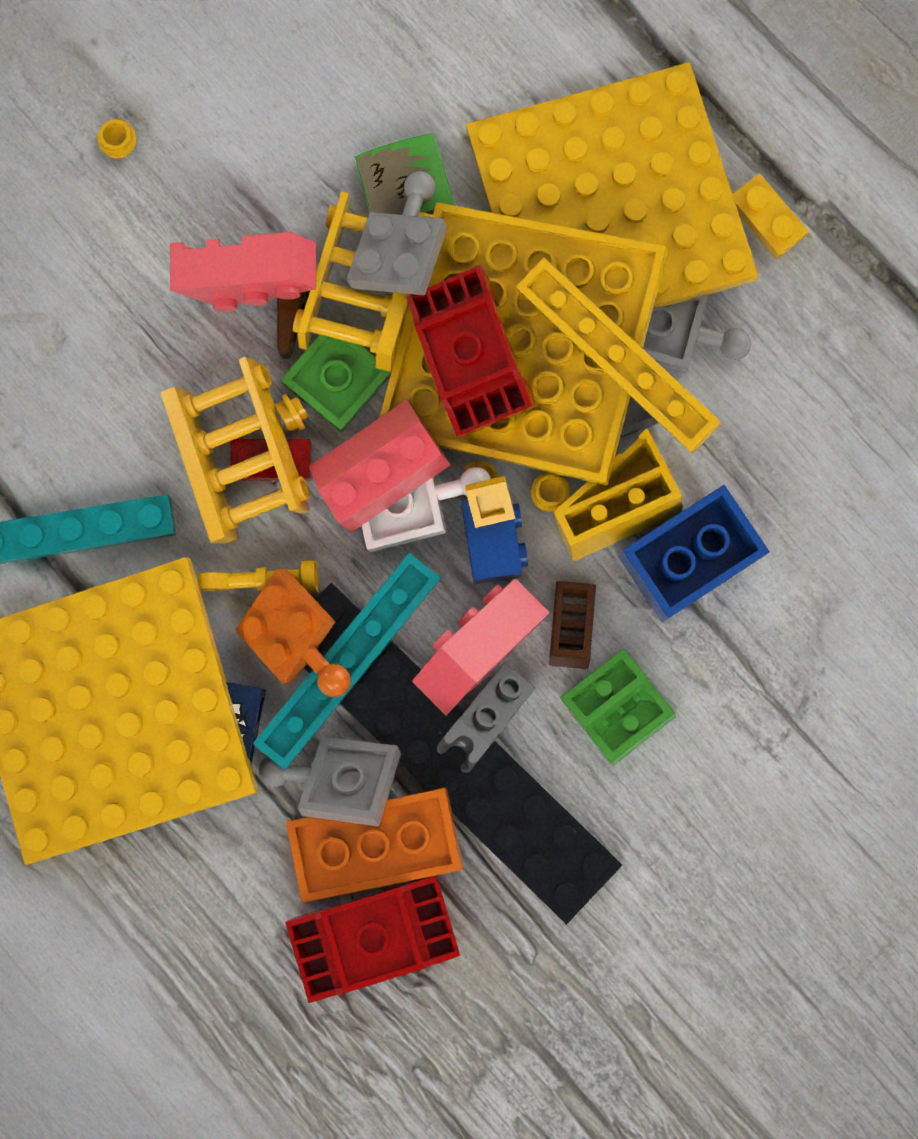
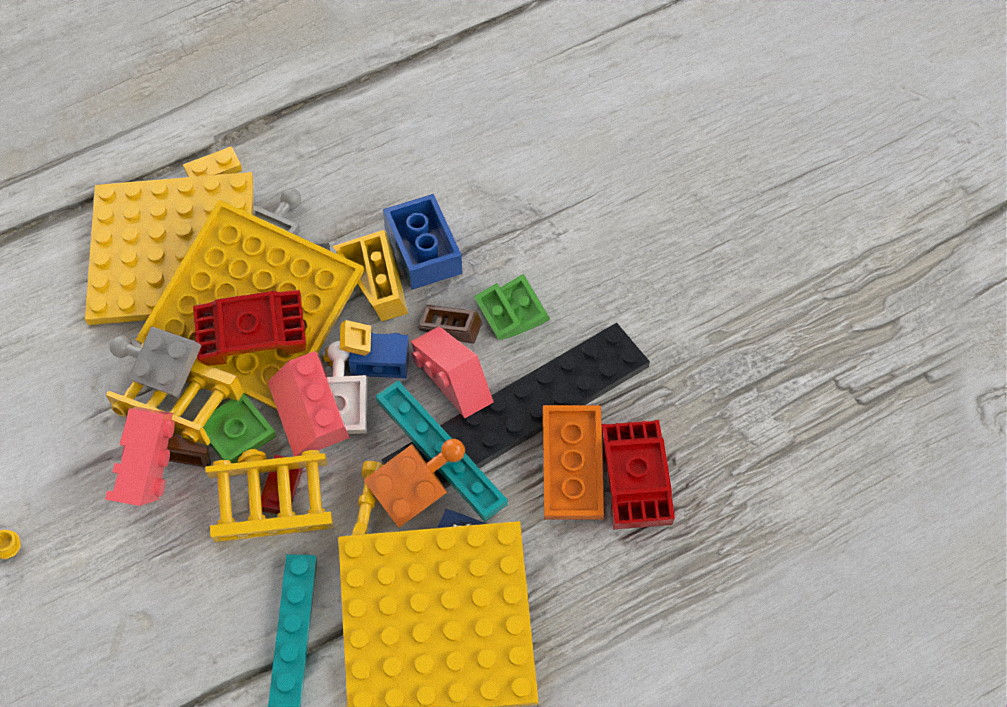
camera: 75 degrees left, 25 degrees down
(345, 781) = (523, 470): light grey plate -> none
(388, 166) = (103, 370): slope -> none
(487, 715) = (505, 380): dark grey plate -> none
(549, 491) = (357, 314): yellow plate -> none
(618, 356) = (281, 237): yellow plate -> none

